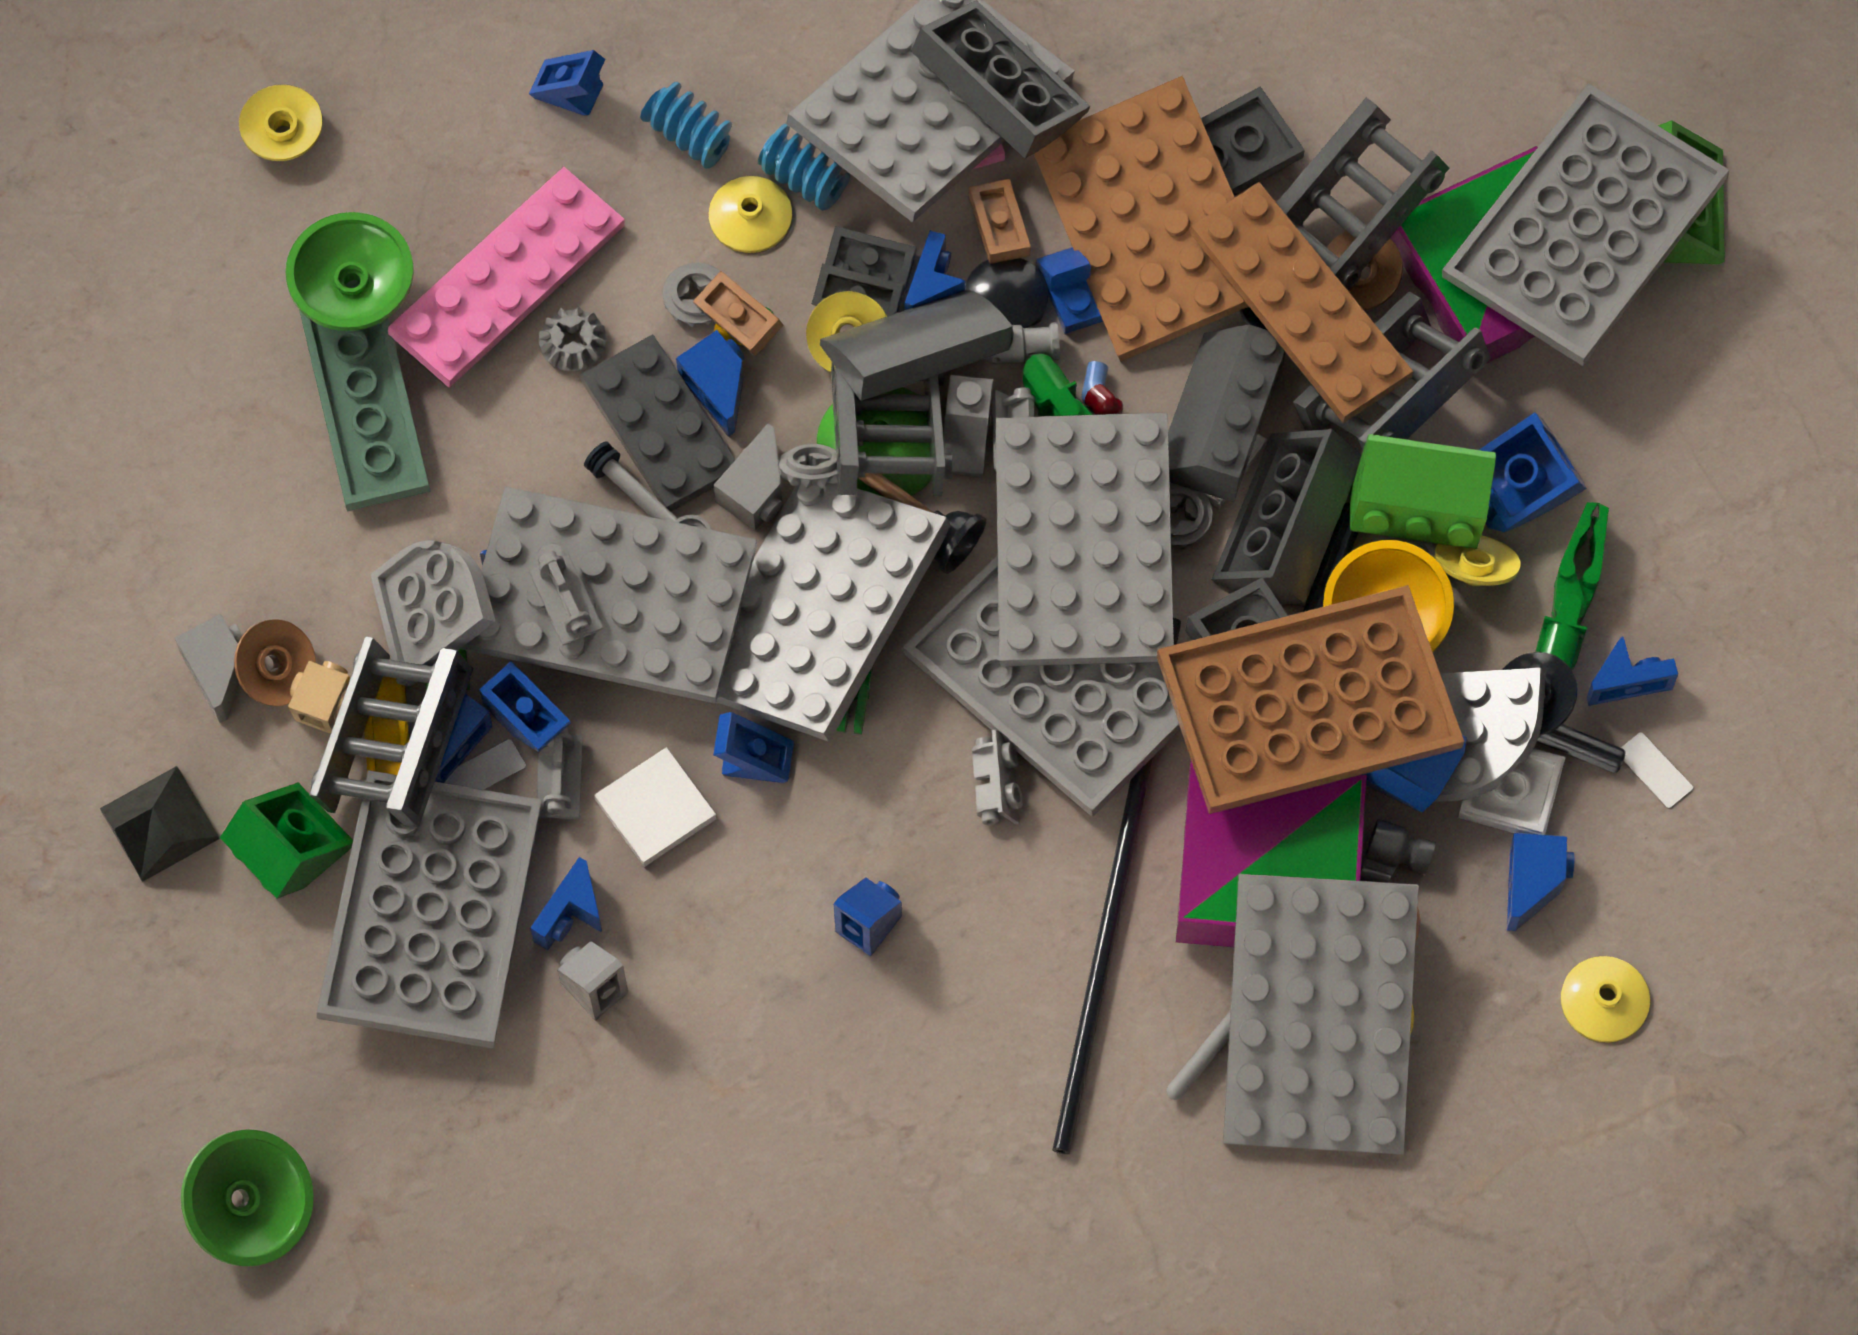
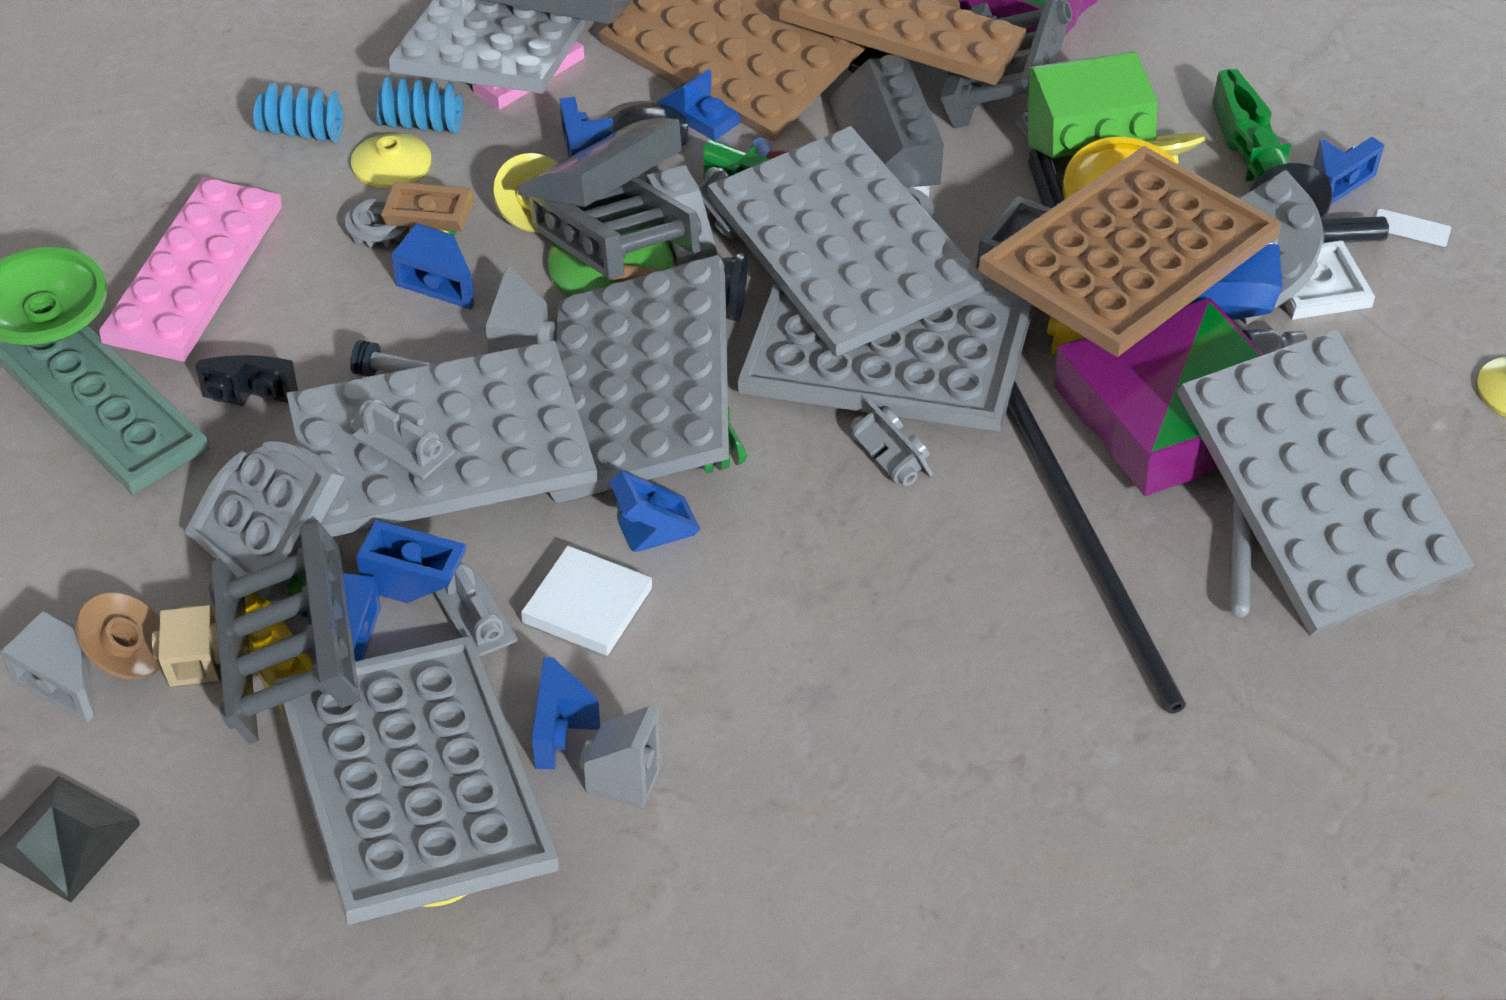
camera: 30 degrees left, 20 degrees down
(285, 839) = (214, 786): green slope -> none
(485, 429) = (238, 376): none -> black slope
(488, 767) = (401, 635): white sticker -> none
(570, 81) = (175, 123): blue slope -> none
(574, 355) = (291, 300): light grey gear -> none
(659, 422) = (398, 316): dark grey plate -> none
(809, 465) = (567, 282): light grey gear -> none
(866, 266) = (500, 145): dark grey slope -> none
(867, 914) = (855, 593): blue slope -> none
(999, 221) = (610, 84): medium nougat plate -> none
(1030, 342) = (693, 146): light grey piece -> none
(1289, 514) = (988, 165): dark grey slope -> none
(1529, 475) = (1170, 70): blue slope -> none
(1535, 874) = (1391, 321): blue slope -> none

